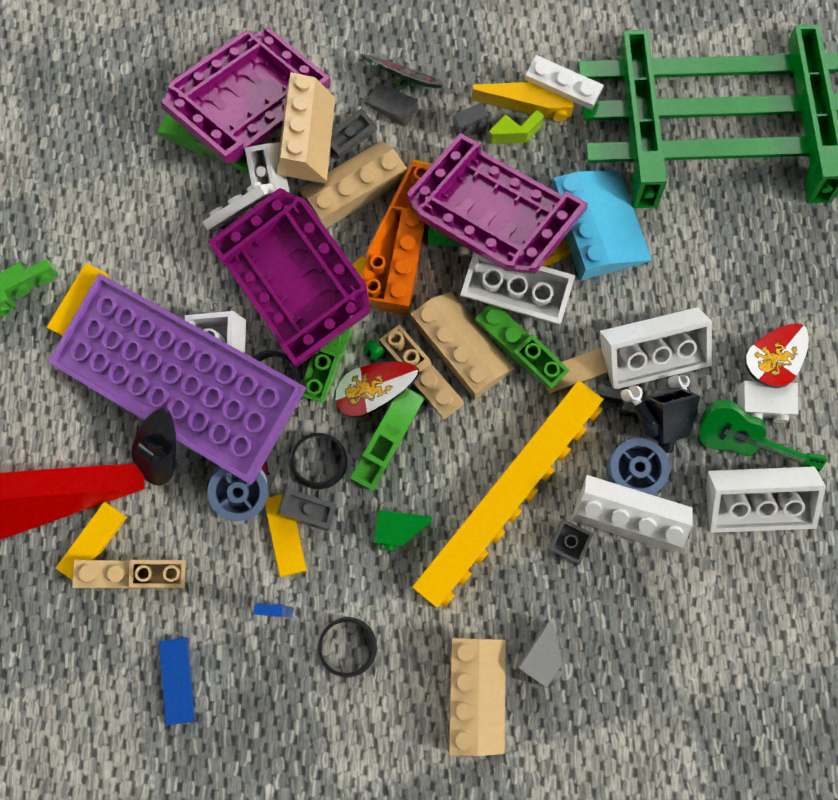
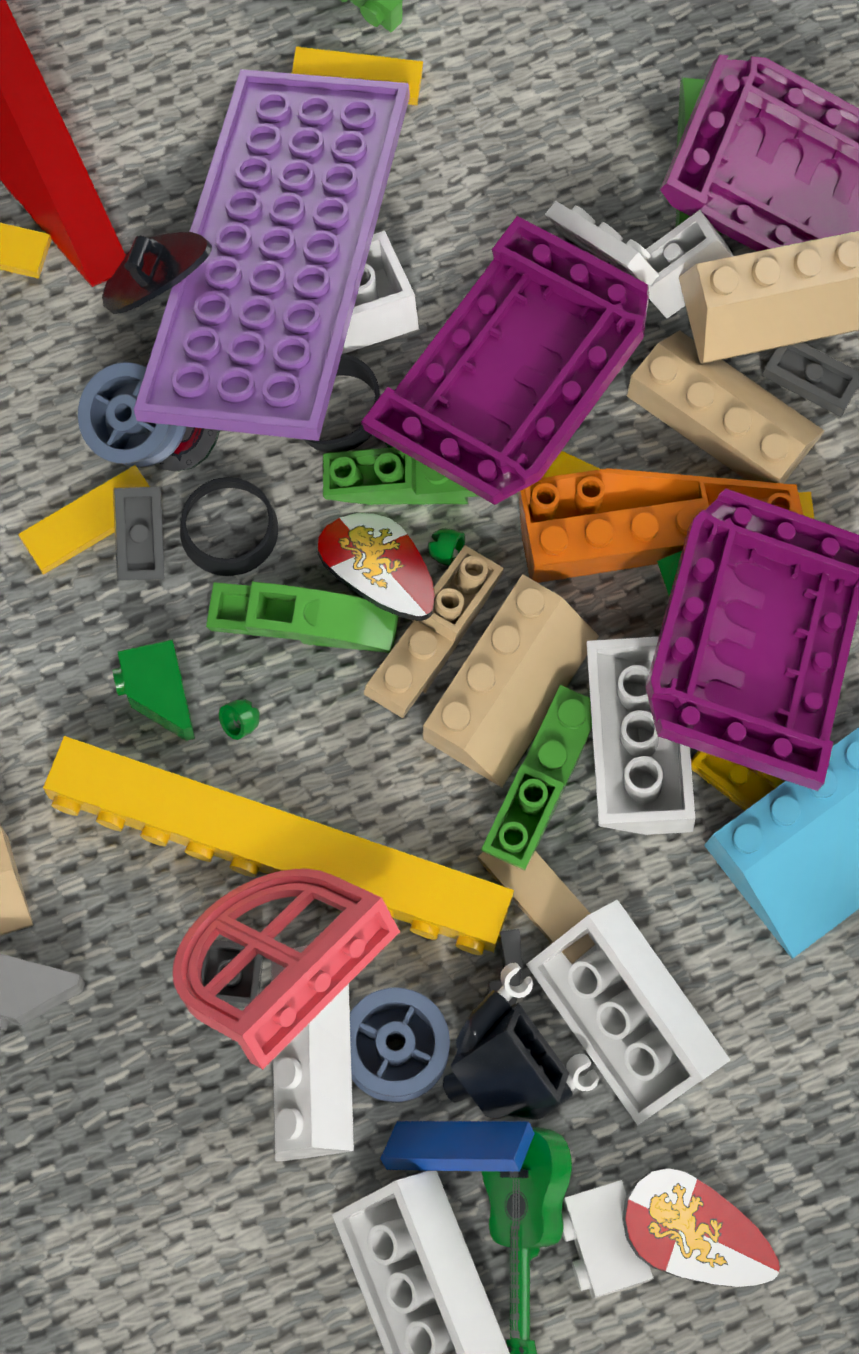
camera: 65 degrees right, 5 degrees down
(429, 486) = (242, 711): none -> green hinge
(603, 493) = (309, 977): none -> coral window
(703, 454) = (458, 1145): none -> blue tile

